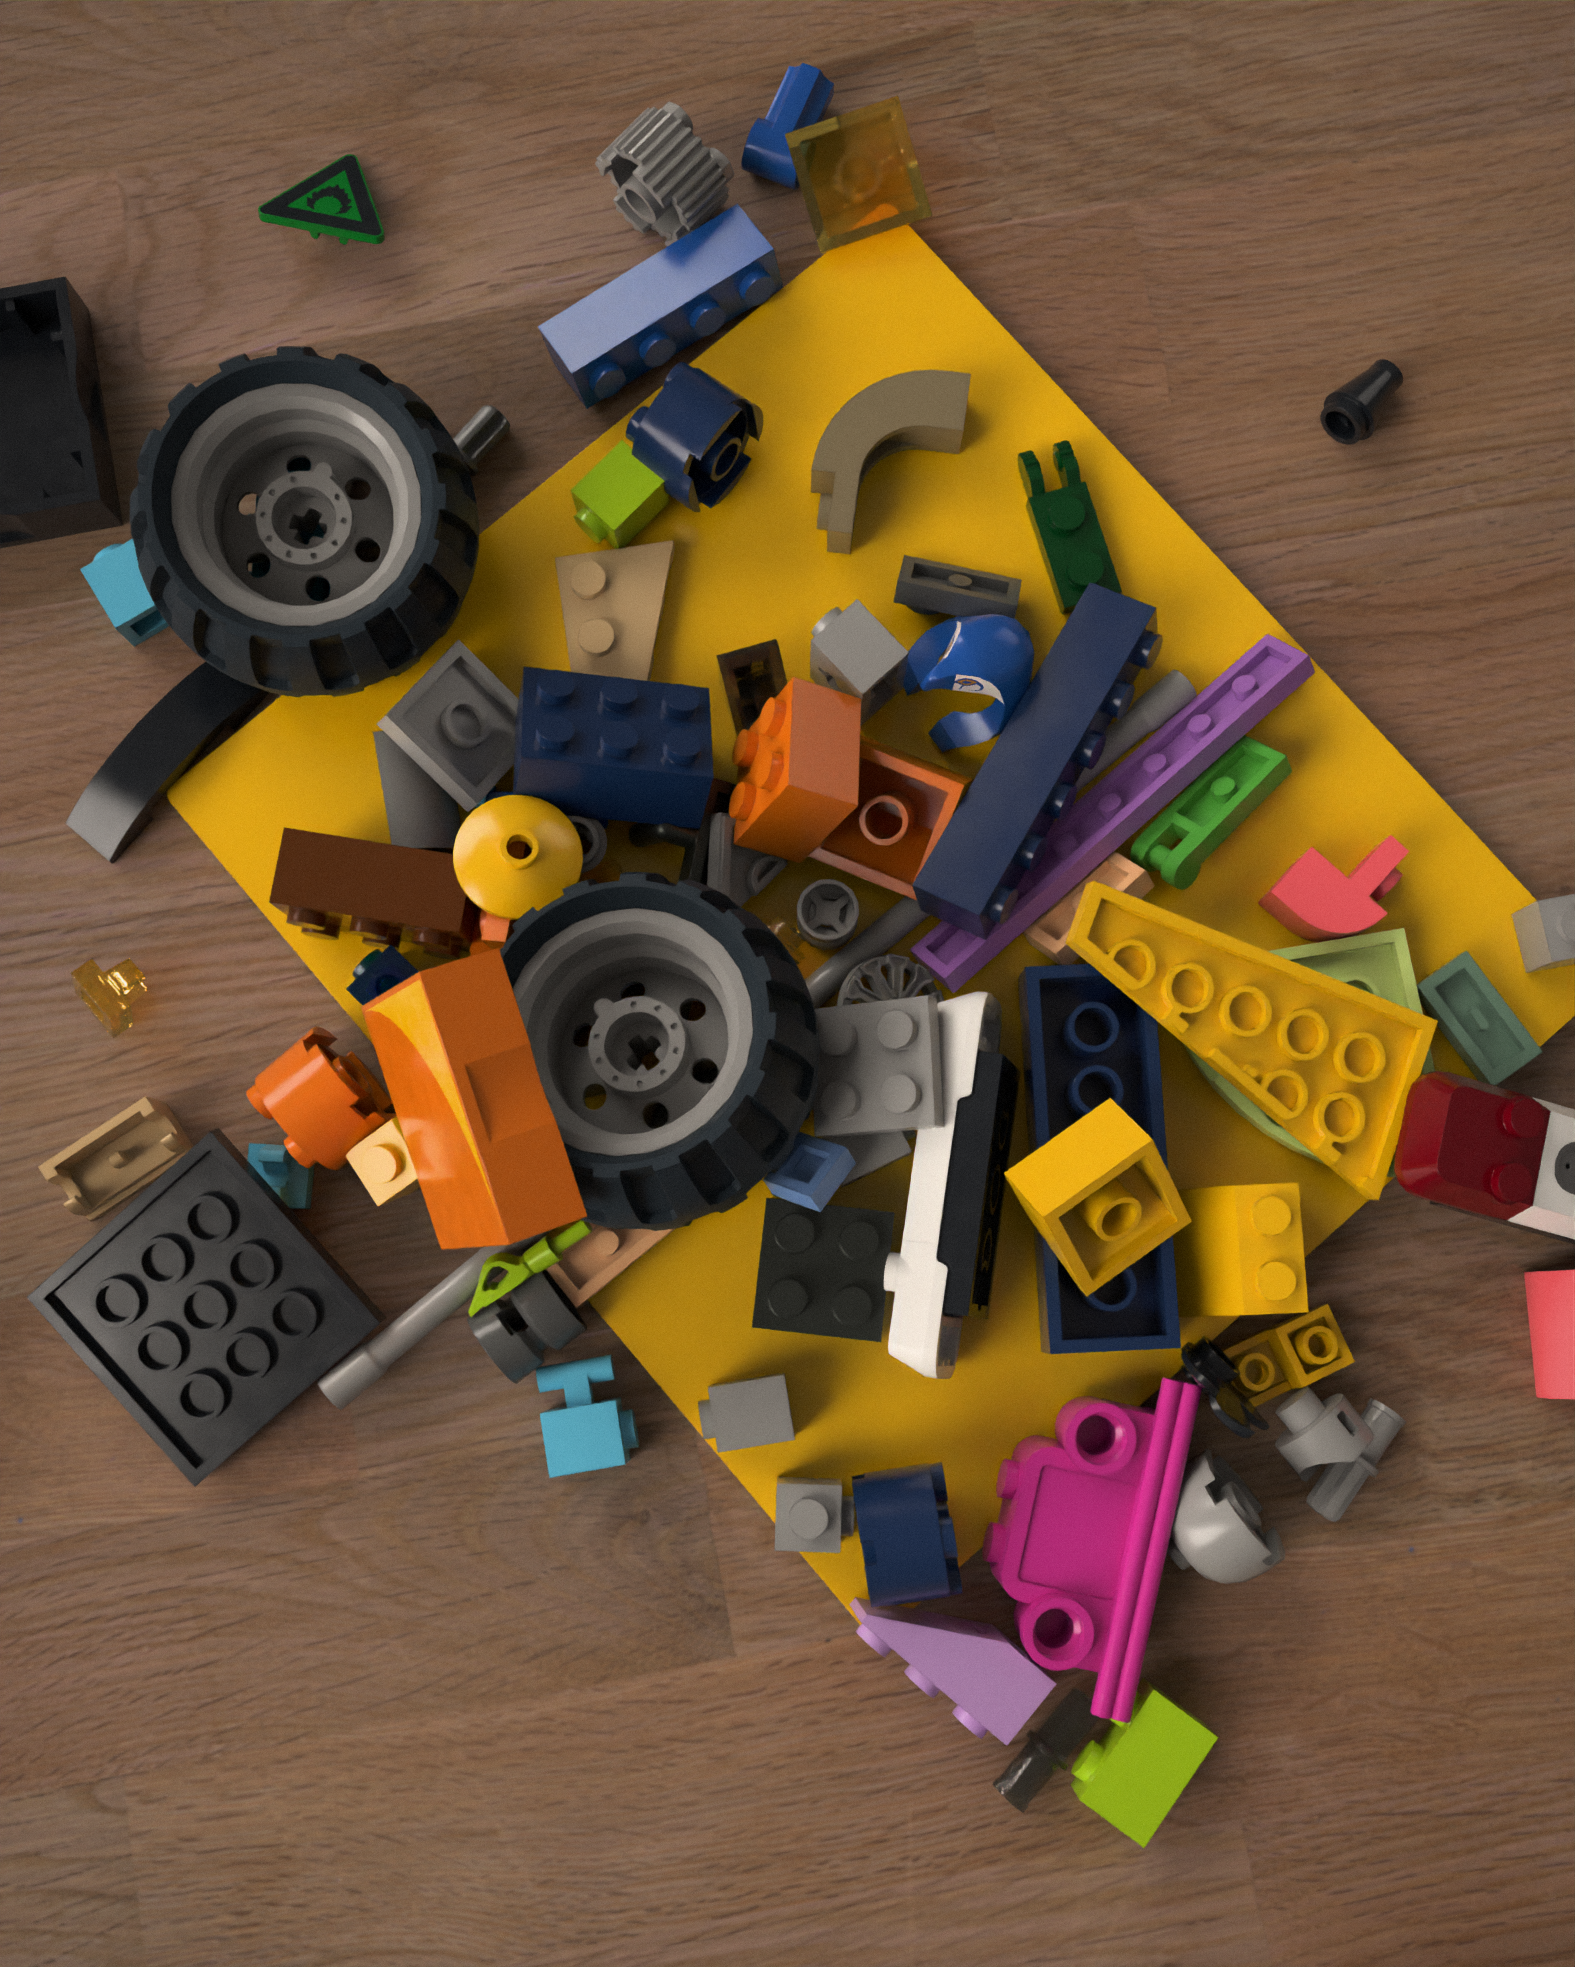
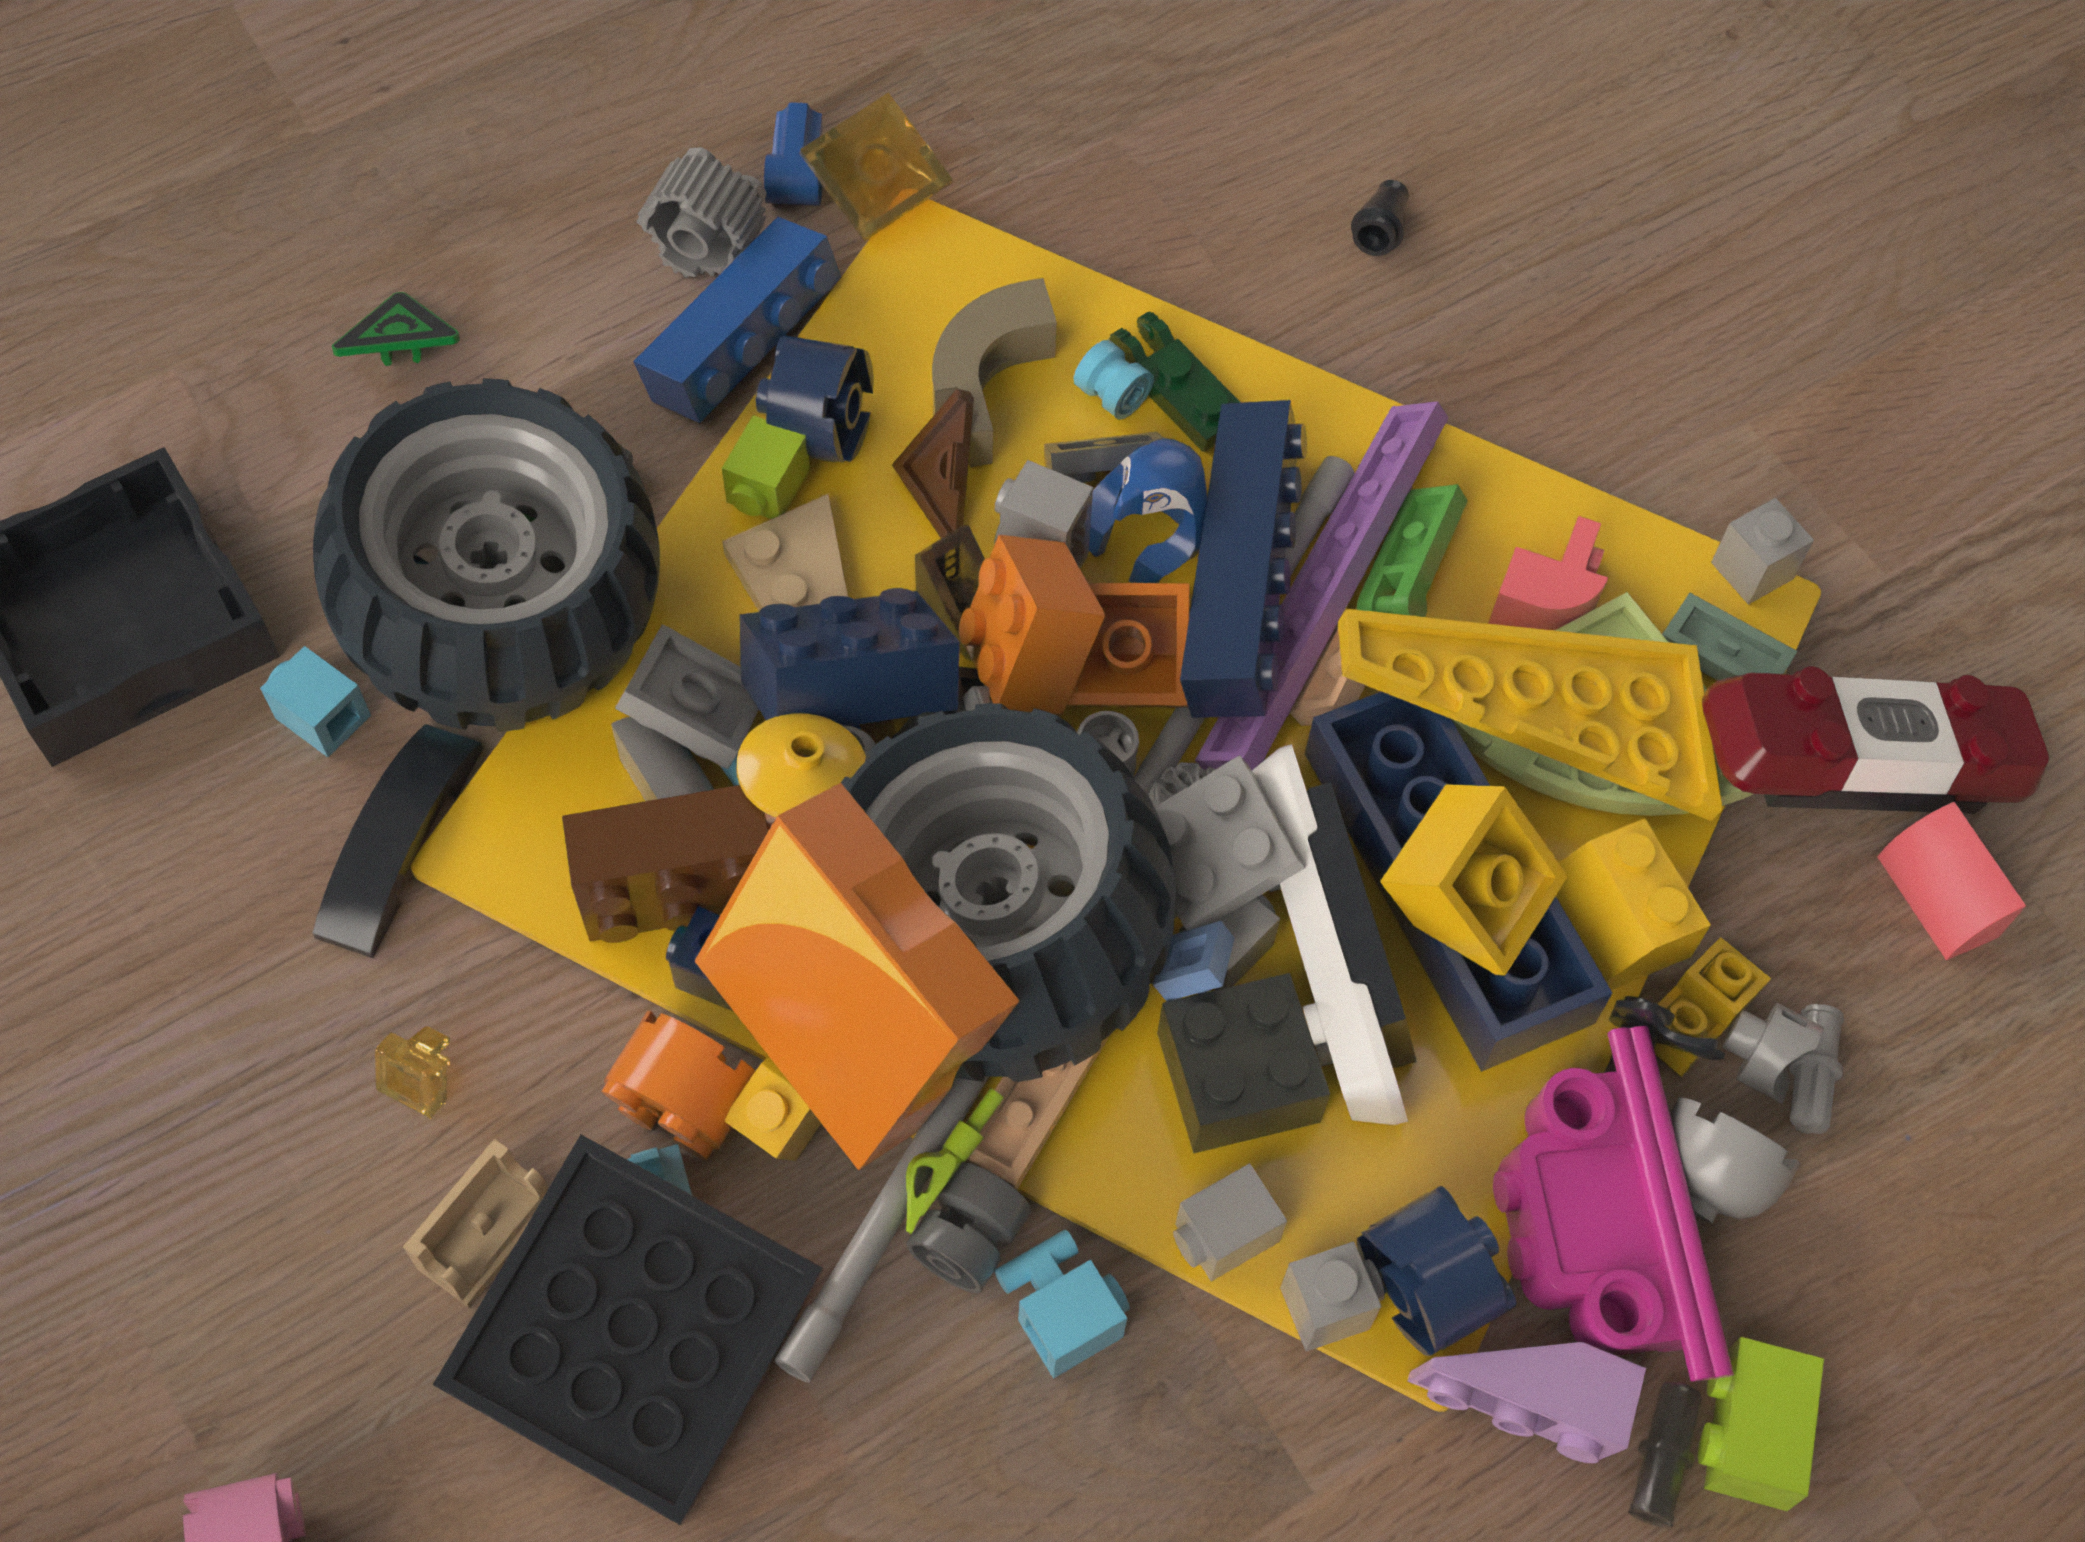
camera: 25 degrees left, 20 degrees down
(786, 551) = (937, 463): none -> reddish brown tile
(1000, 508) = (1113, 379): none -> medium azure wheel

